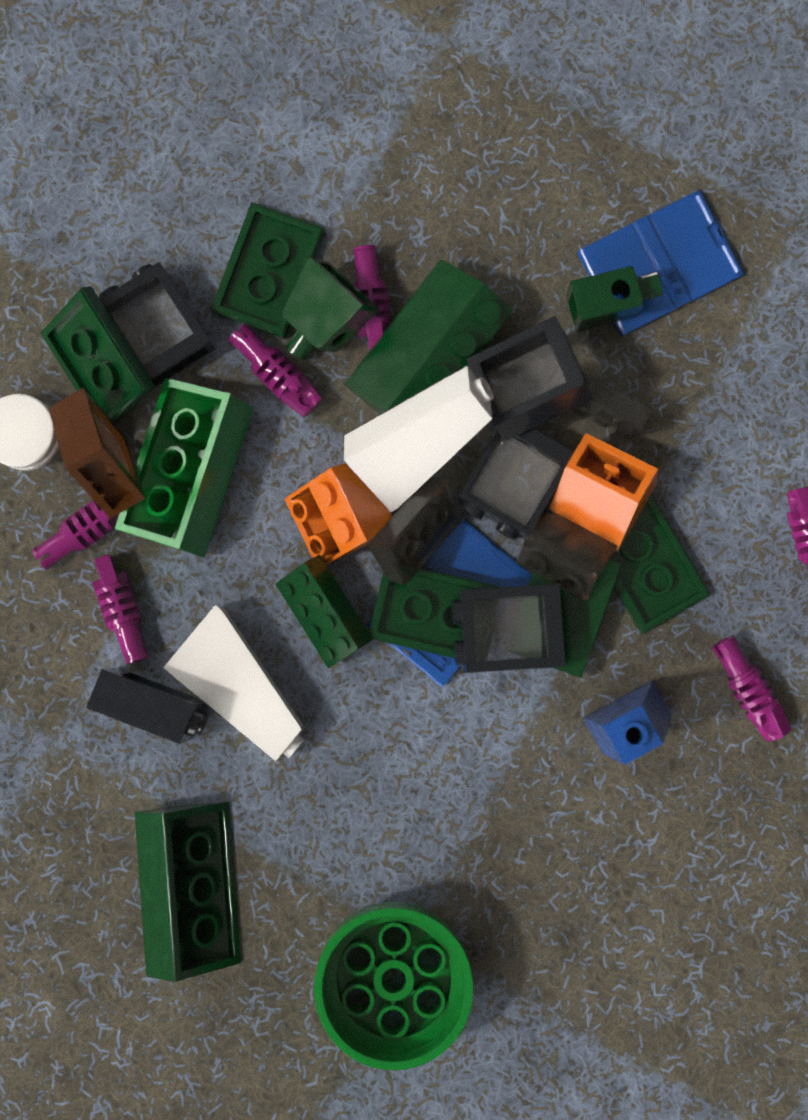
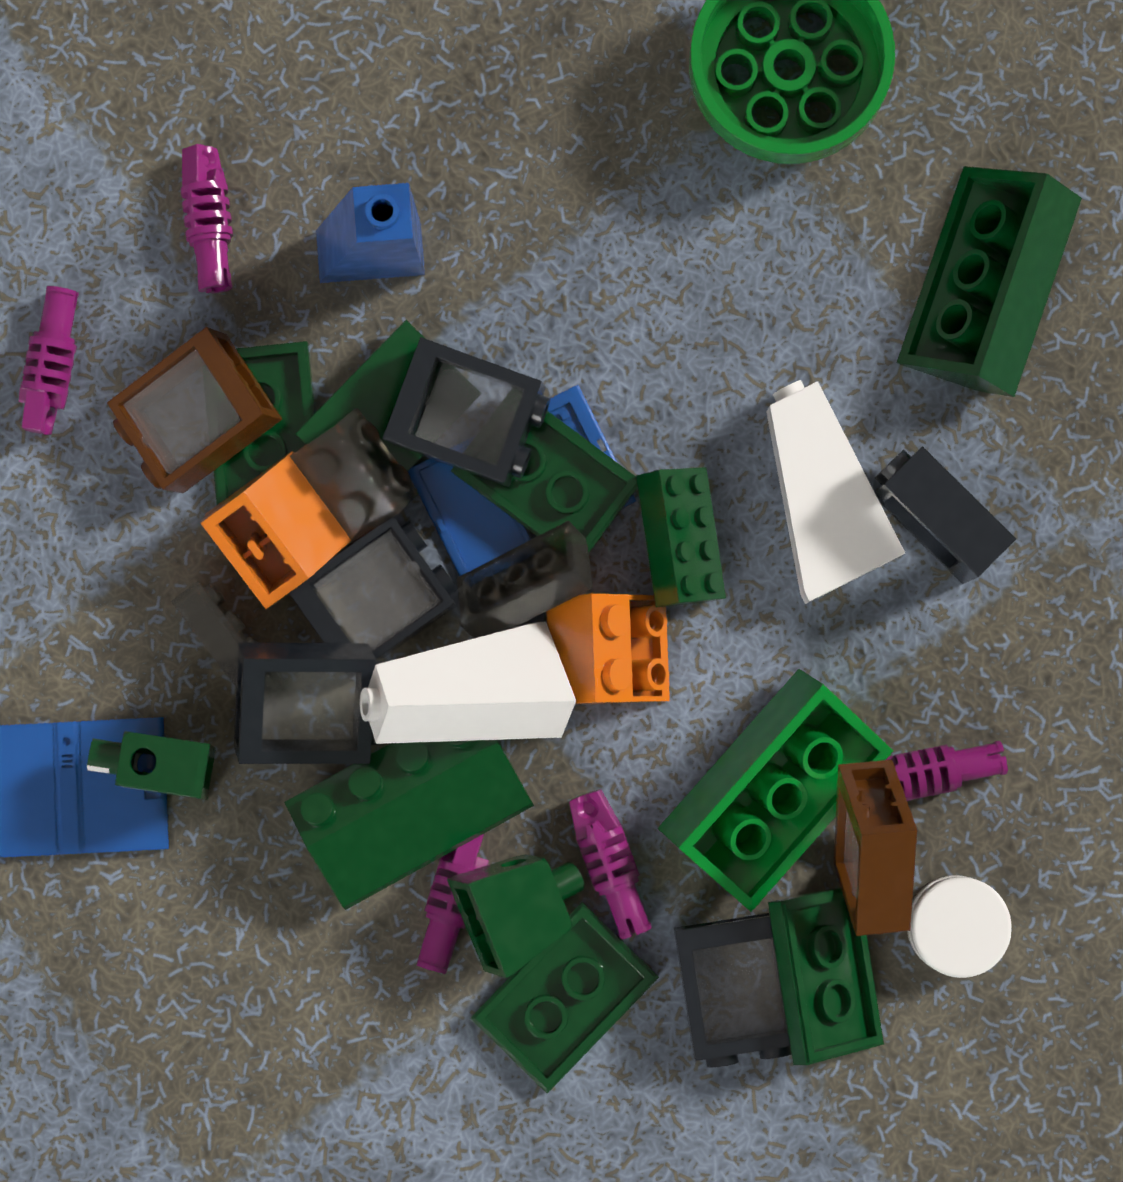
camera: 150 degrees left, 0 degrees up
(120, 609) = (929, 651): magenta hinge -> none
(698, 548) = (192, 411): none -> window

